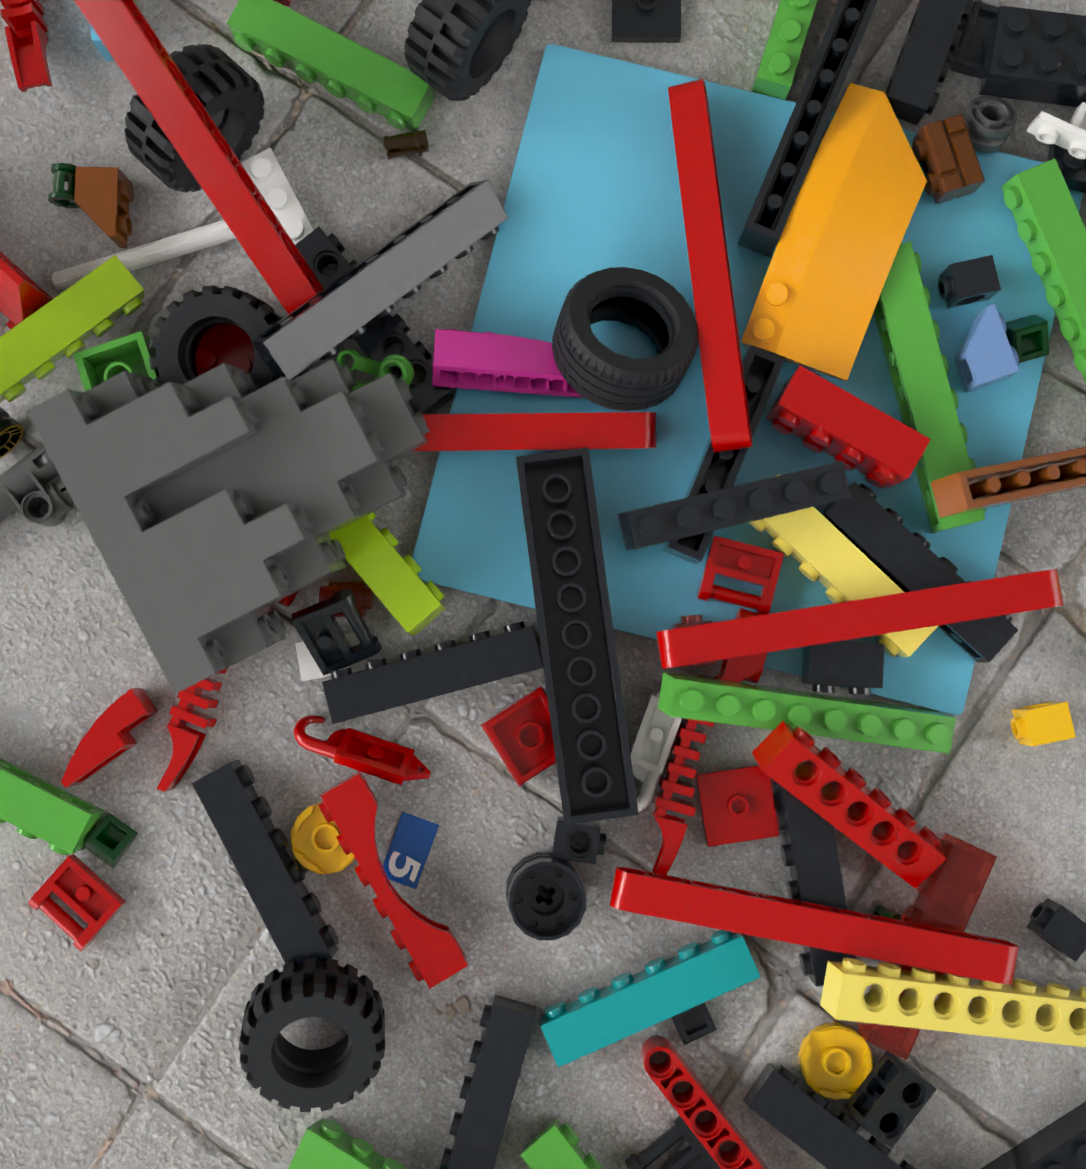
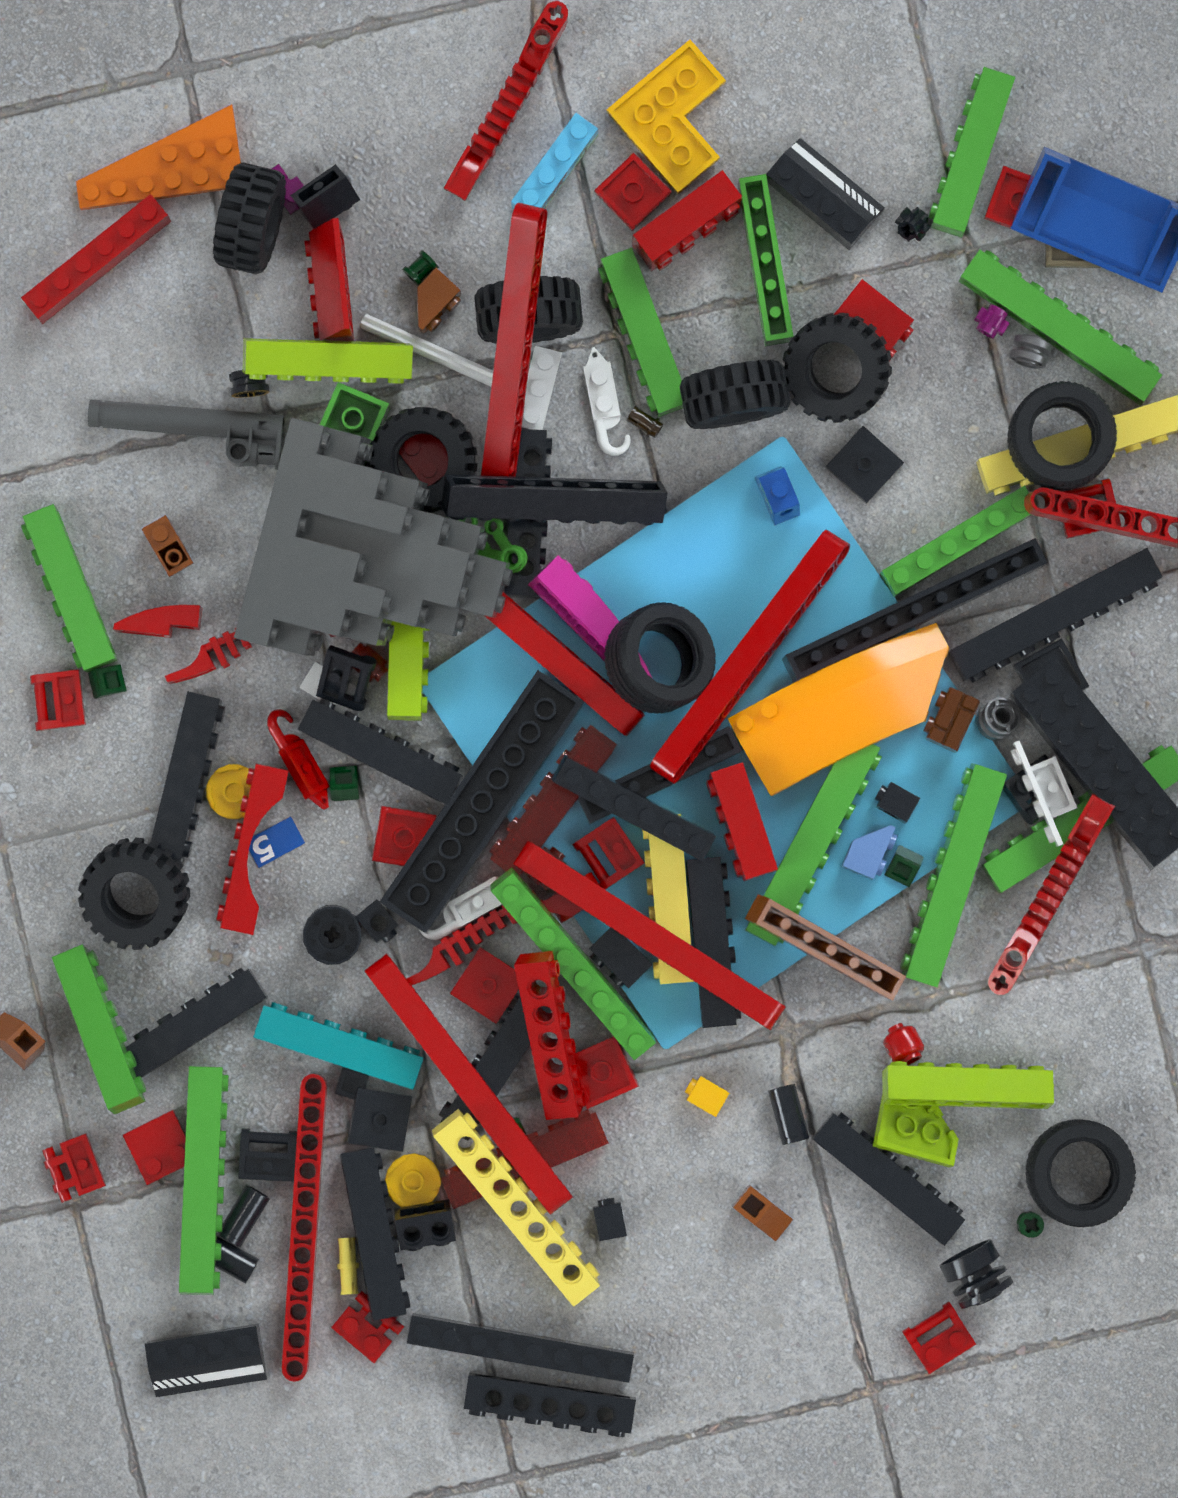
camera: 35 degrees right, 0 degrees up
(47, 658) = (167, 546): none -> dark orange slope
(350, 160) = (603, 402): none -> white plate
(425, 734) = (344, 783): none -> dark green slope
(594, 92) = (778, 495): none -> blue torso
(643, 575) = (553, 801): none -> clear red brick
(751, 1032) = (379, 1119): none -> black plate
(924, 787) = (604, 1072): none -> red plate

